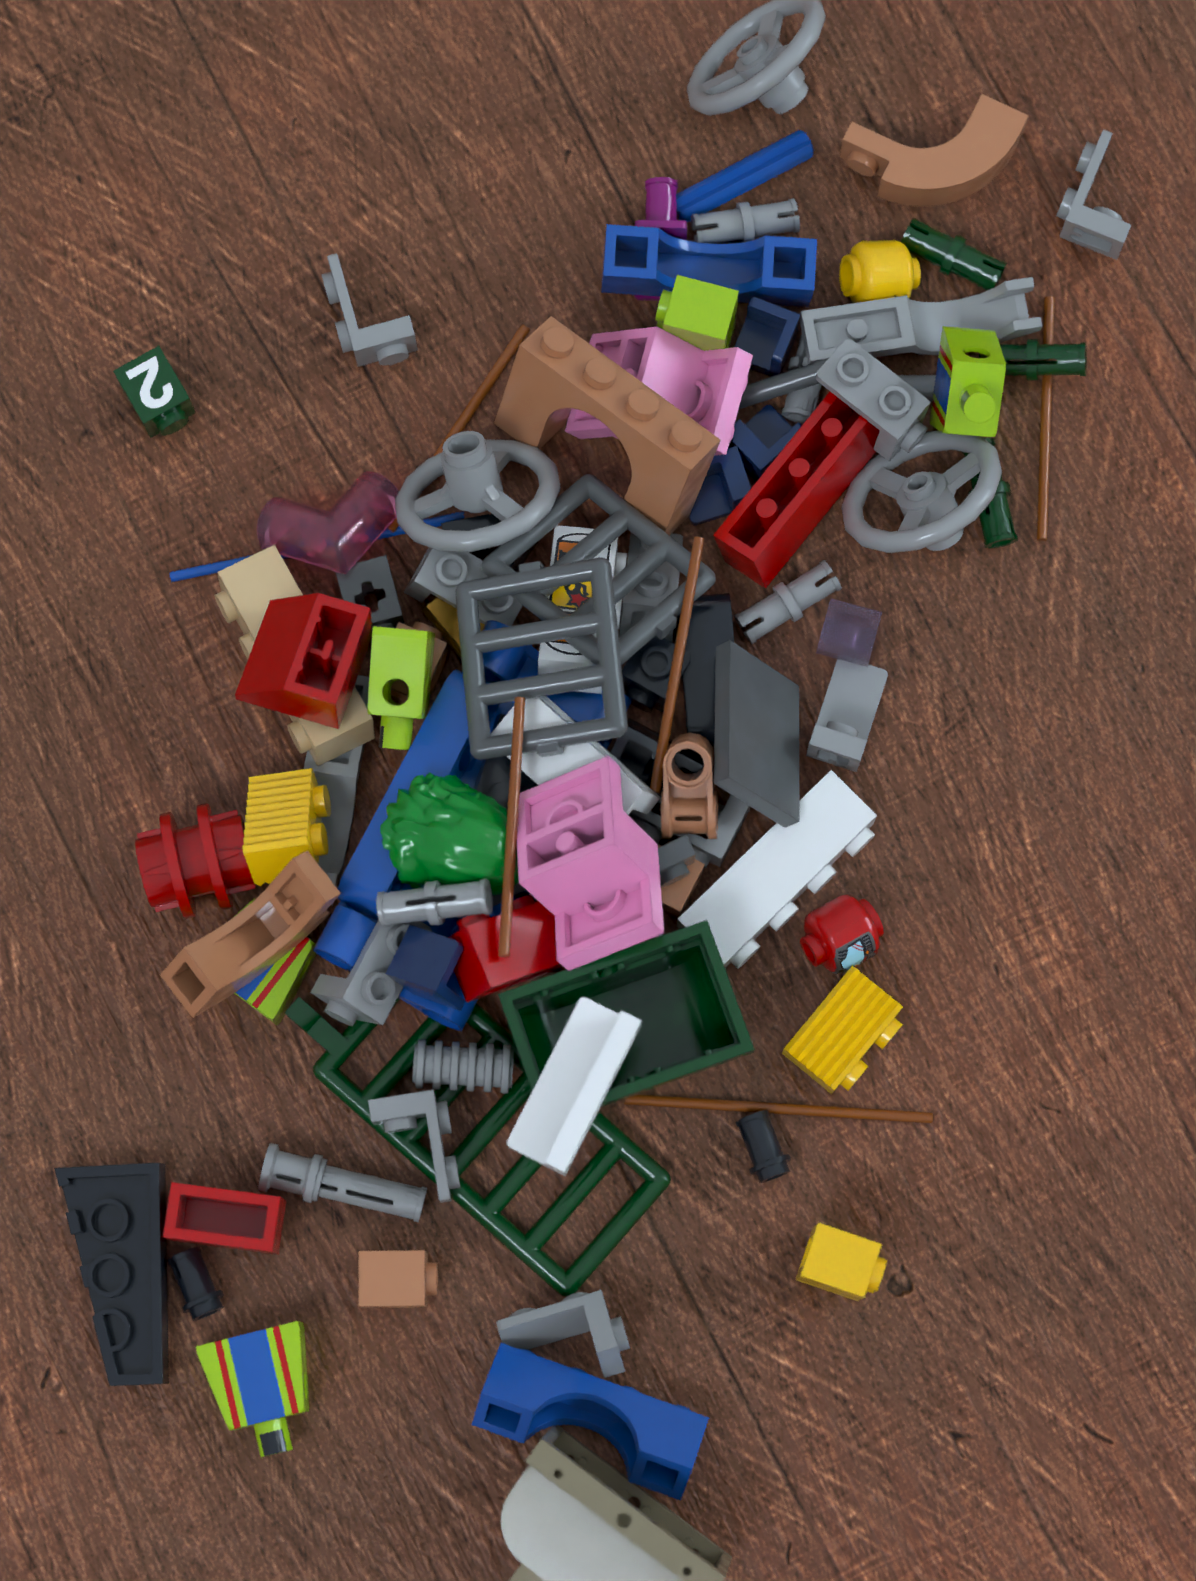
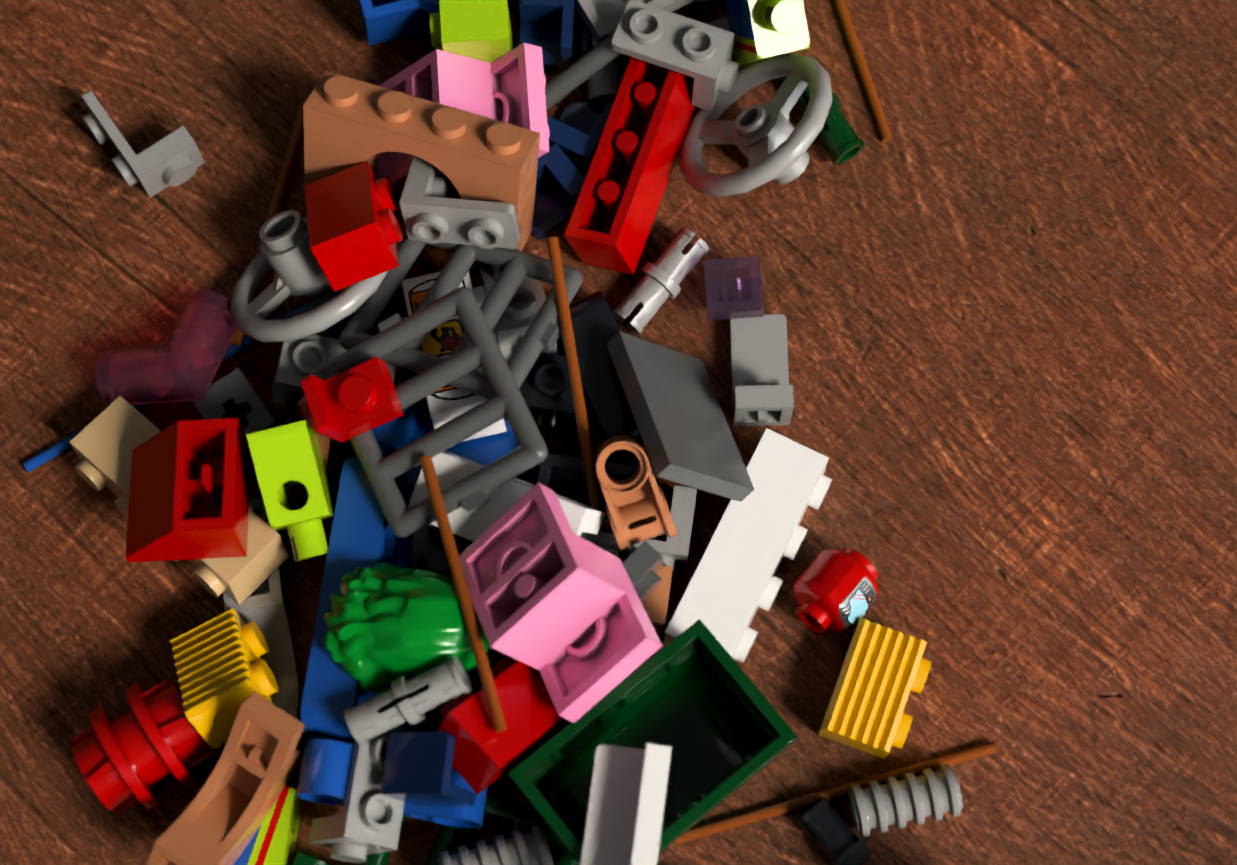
camera: 20 degrees left, 5 degrees down
(473, 625) = (351, 401): none -> red bracket
(527, 465) = (352, 225): none -> red piece
(603, 483) = (437, 218): none -> light grey bracket
(835, 1136) = (905, 800): none -> light grey piece

